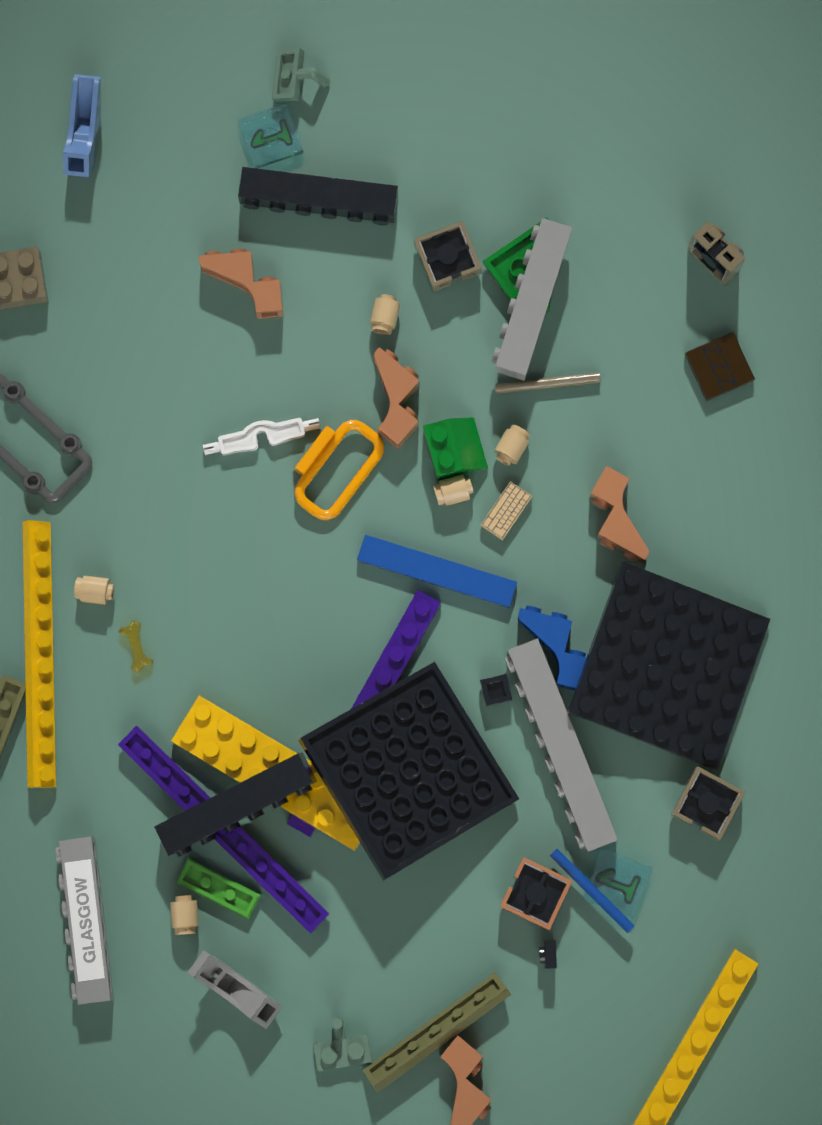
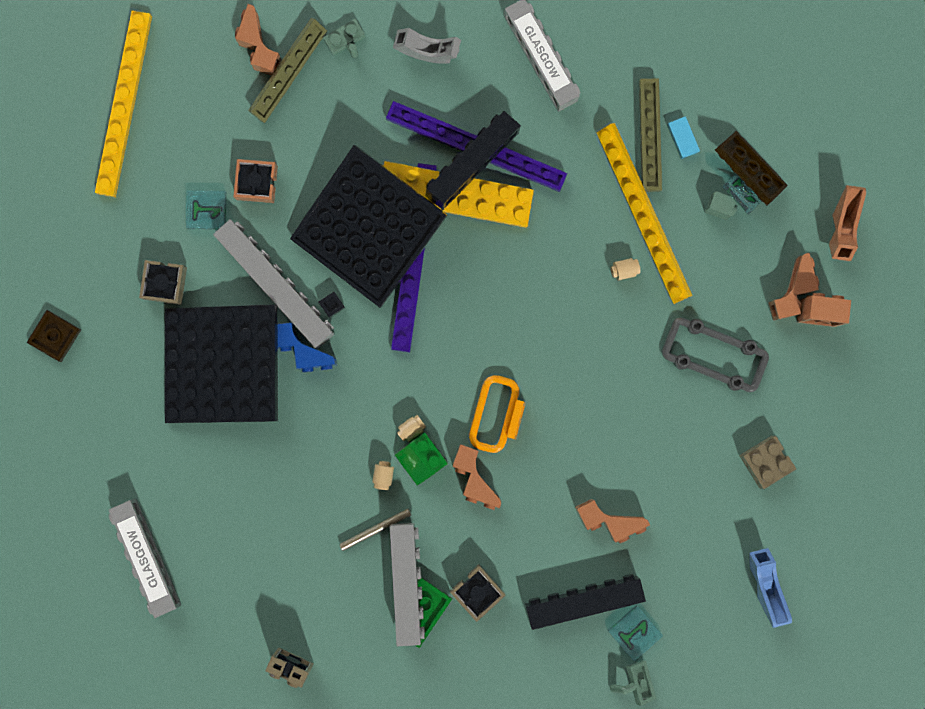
camera: 150 degrees right, 5 degrees up
(131, 633) = (575, 235): clear yellow piece -> none
(184, 915) = (479, 81): tan brick -> none
(218, 888) = (464, 108): bright green tile -> none
(247, 439) = (564, 411): white piece -> none
(384, 314) = (505, 534): tan brick -> none
(437, 571) = (401, 370): blue tile -> none
(506, 511) = (370, 429): tan tile -> none
(548, 954) = (233, 146): black plate -> none
(592, 891) = (220, 197): blue bar -> none
(618, 529) = (290, 445): nougat arch -> none
(719, 366) = (260, 587): dark brown tile -> none

